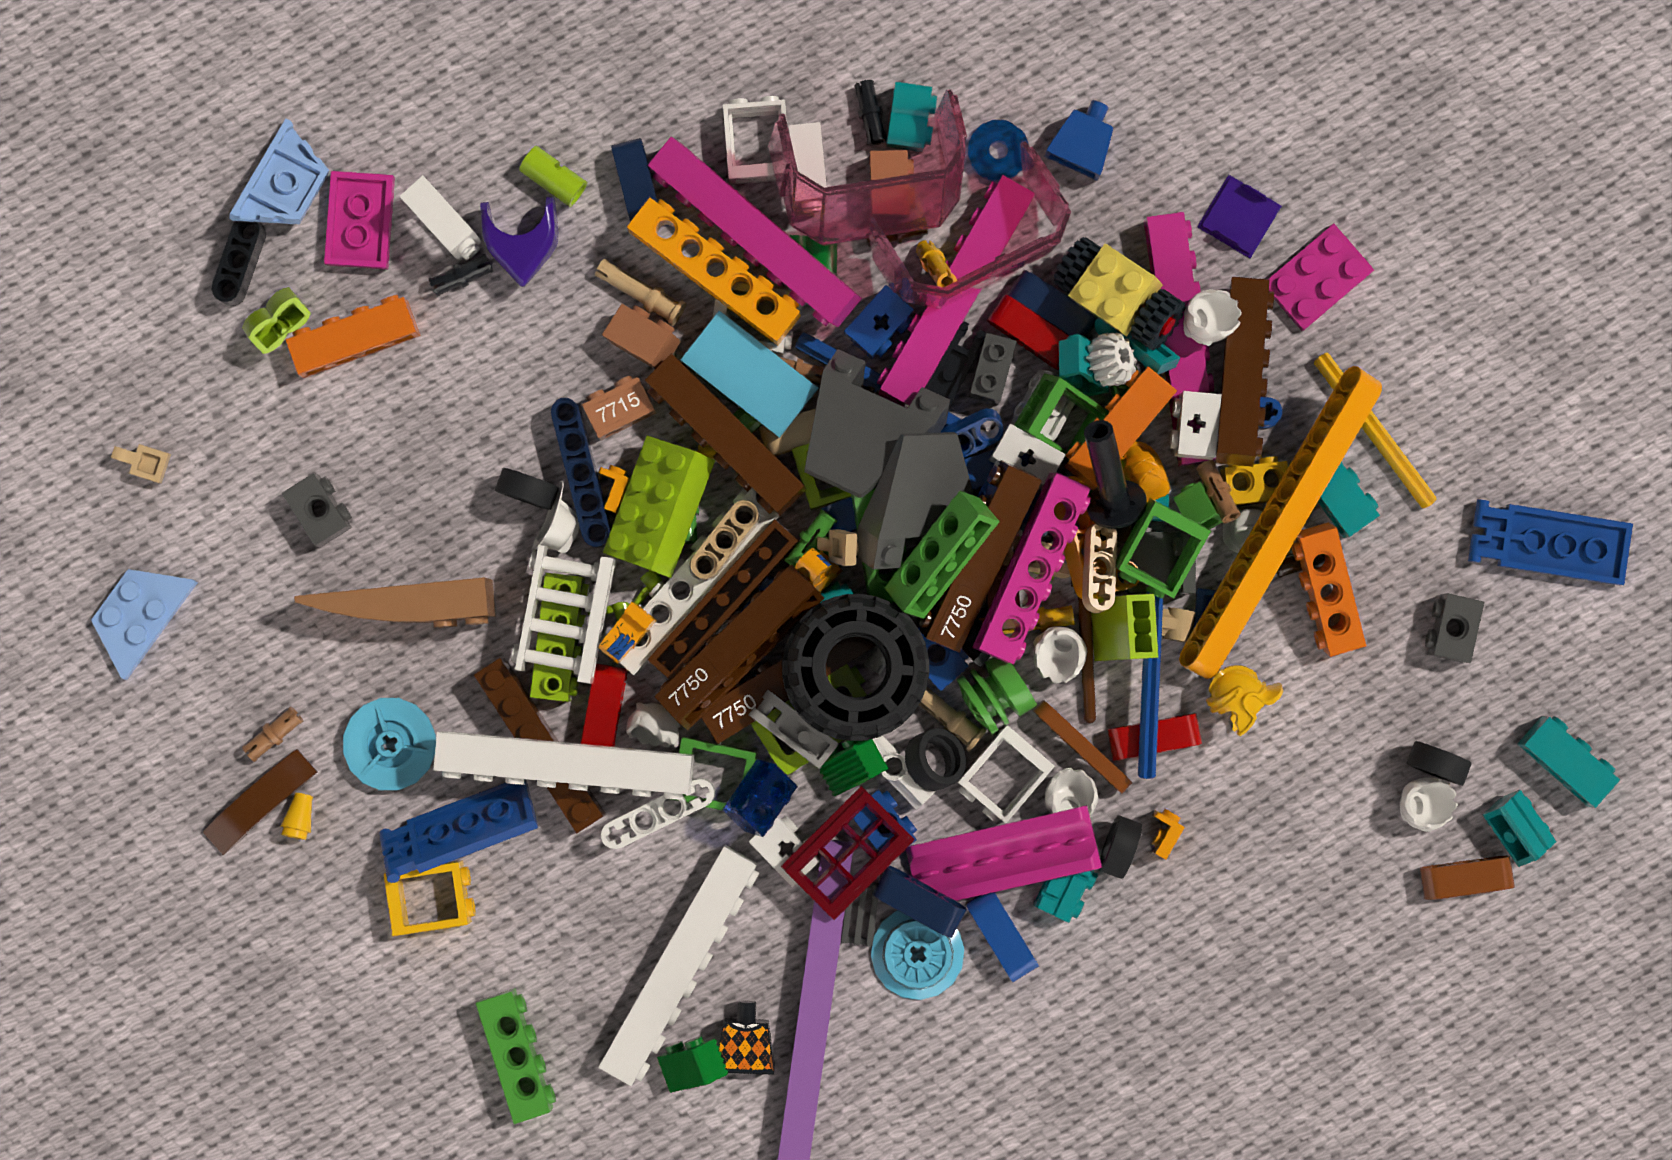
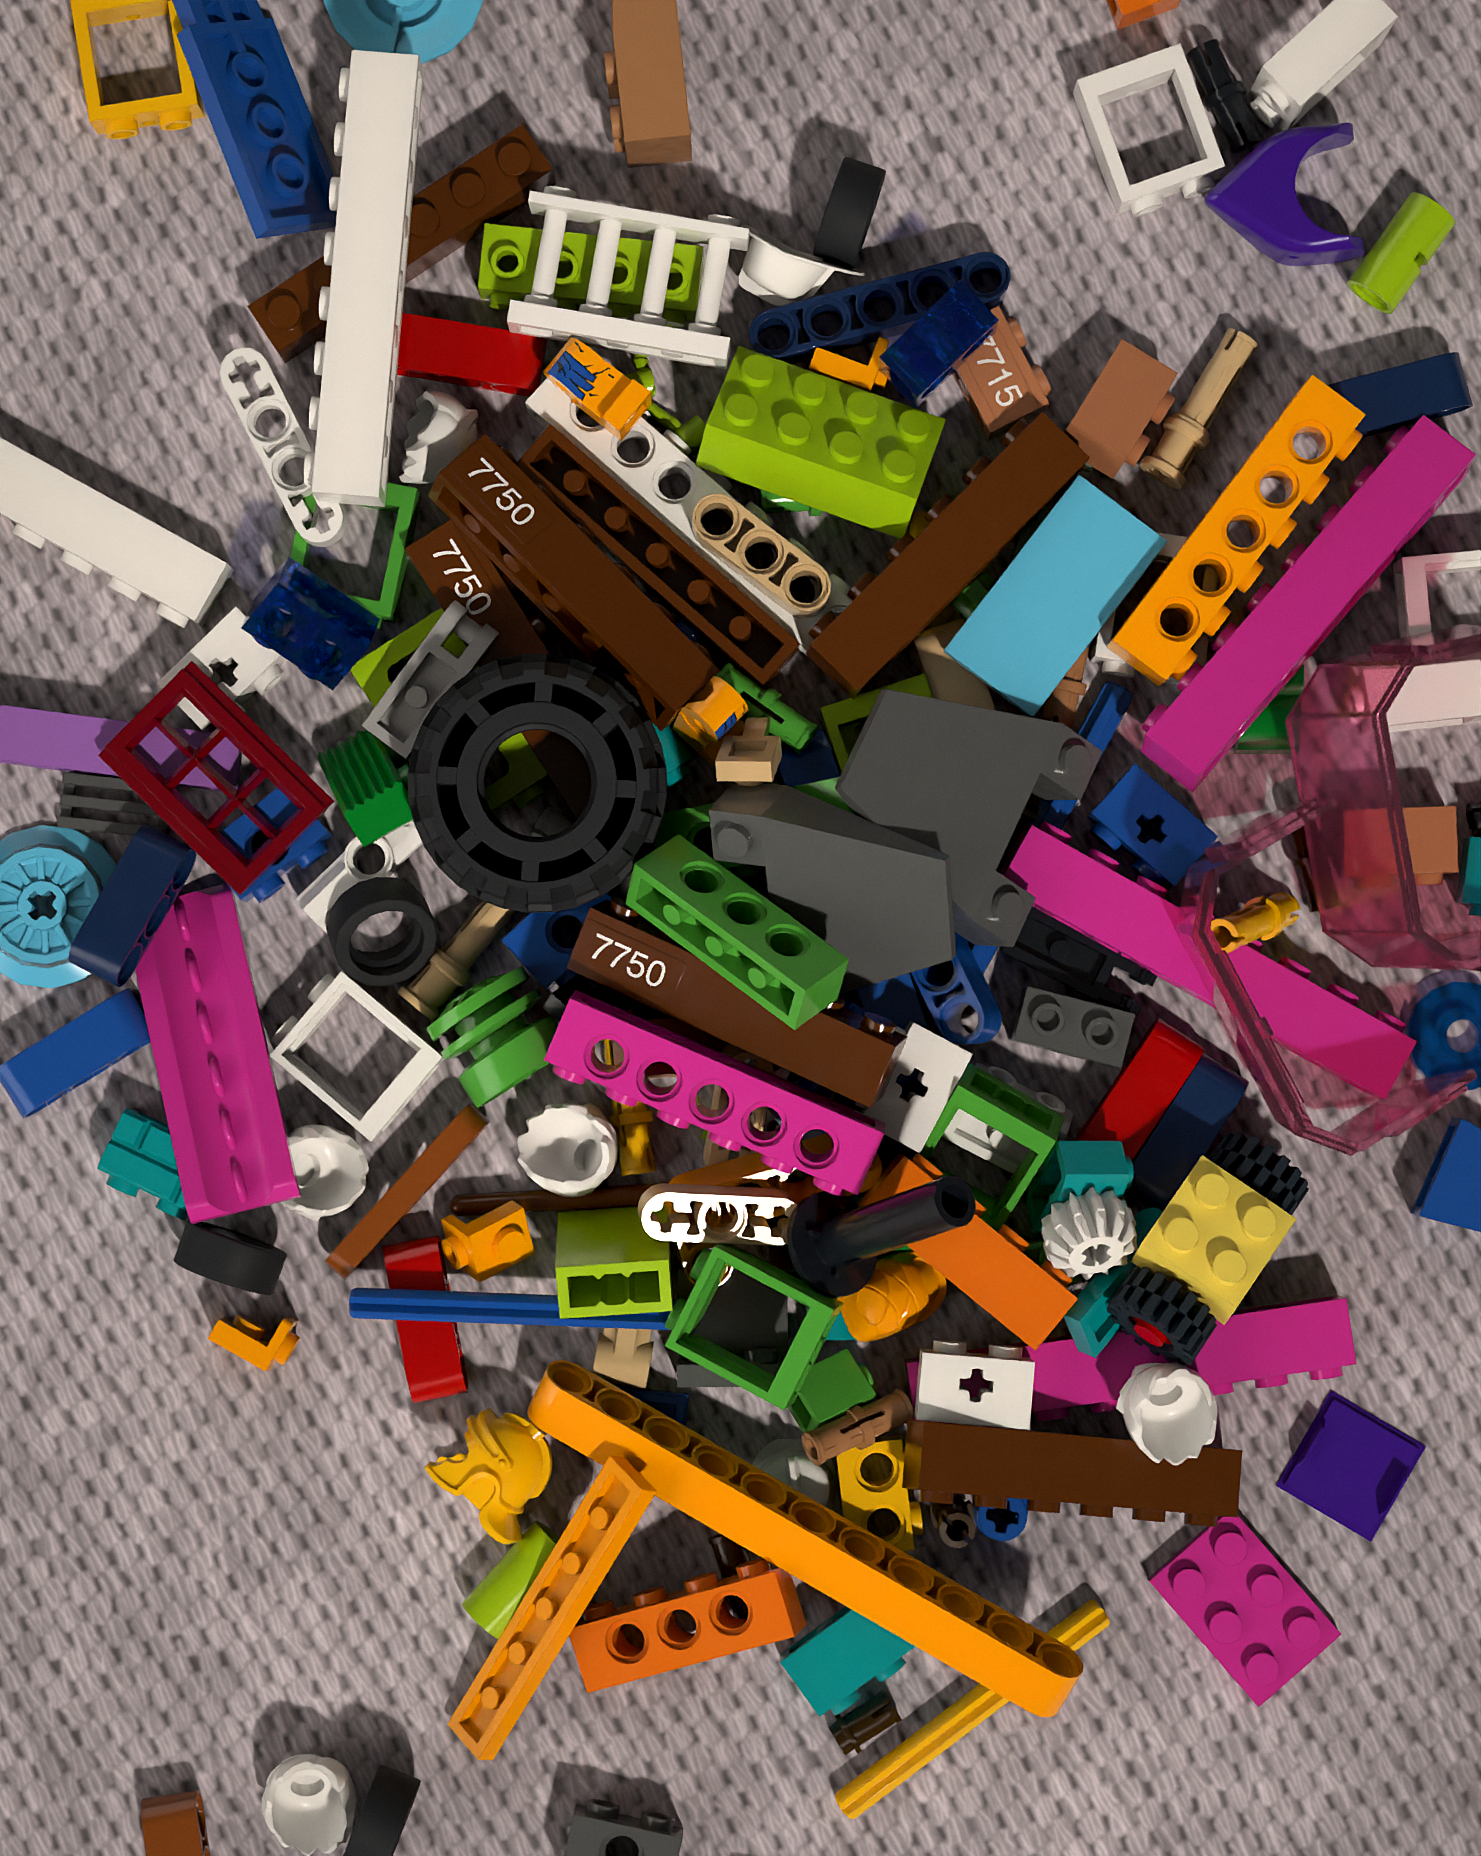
camera: 90 degrees right, 0 degrees up
(450, 327) = (1132, 78): none -> white window
(605, 438) = (938, 344): none -> clear blue brick
(1112, 700) = (488, 1242): none -> light orange bracket
(1272, 437) = (954, 1521): none -> dark brown pin
(1302, 685) = (508, 1582): none -> lime pin
(1319, 665) = (551, 1607): none -> light orange plate
(1384, 493) = (859, 1724): none -> dark brown pin

